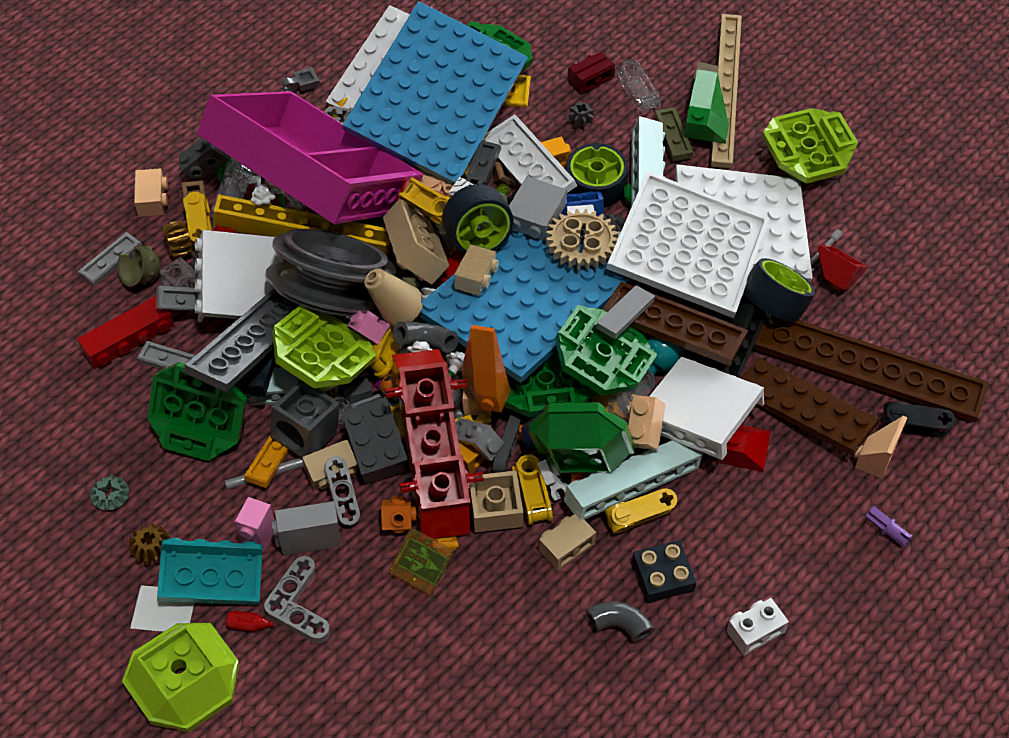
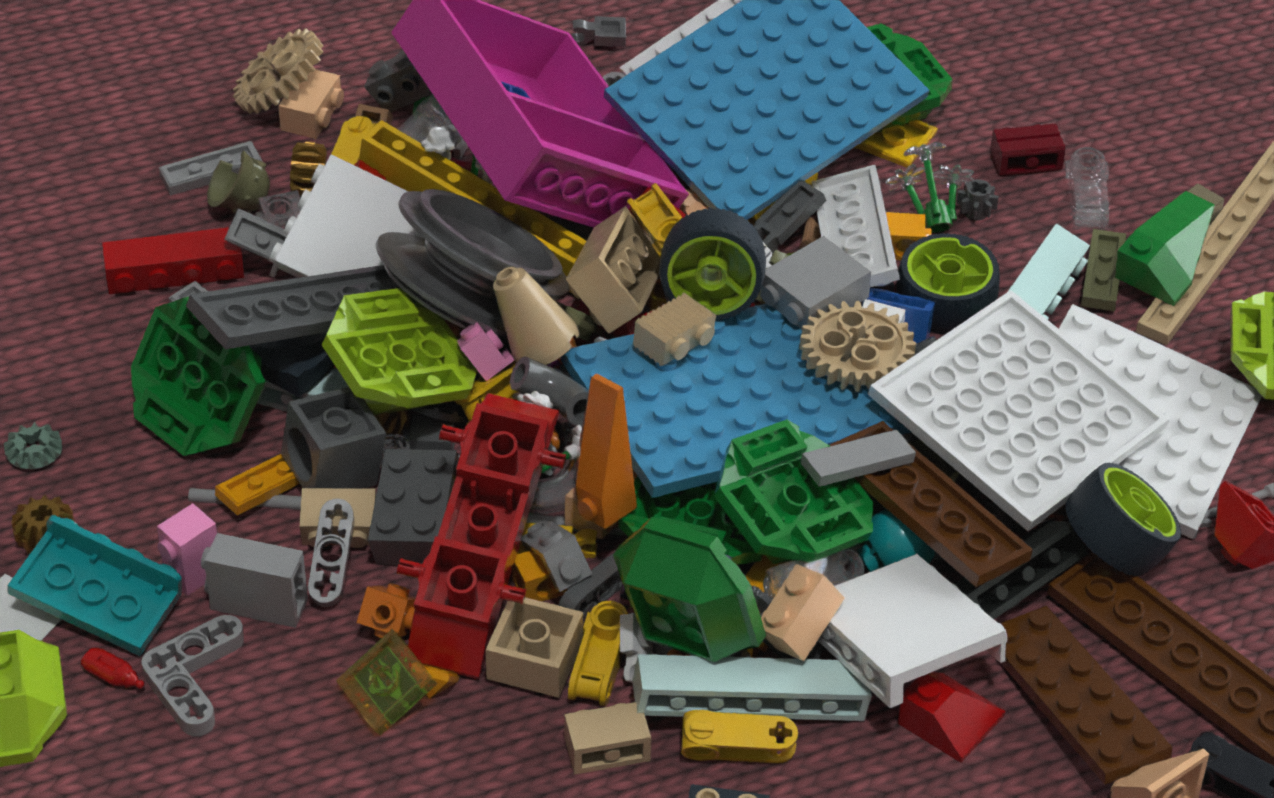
camera: 25 degrees right, 10 degrees down
(111, 191) = (278, 71): none -> tan gear
(564, 130) = (937, 214): none -> plant

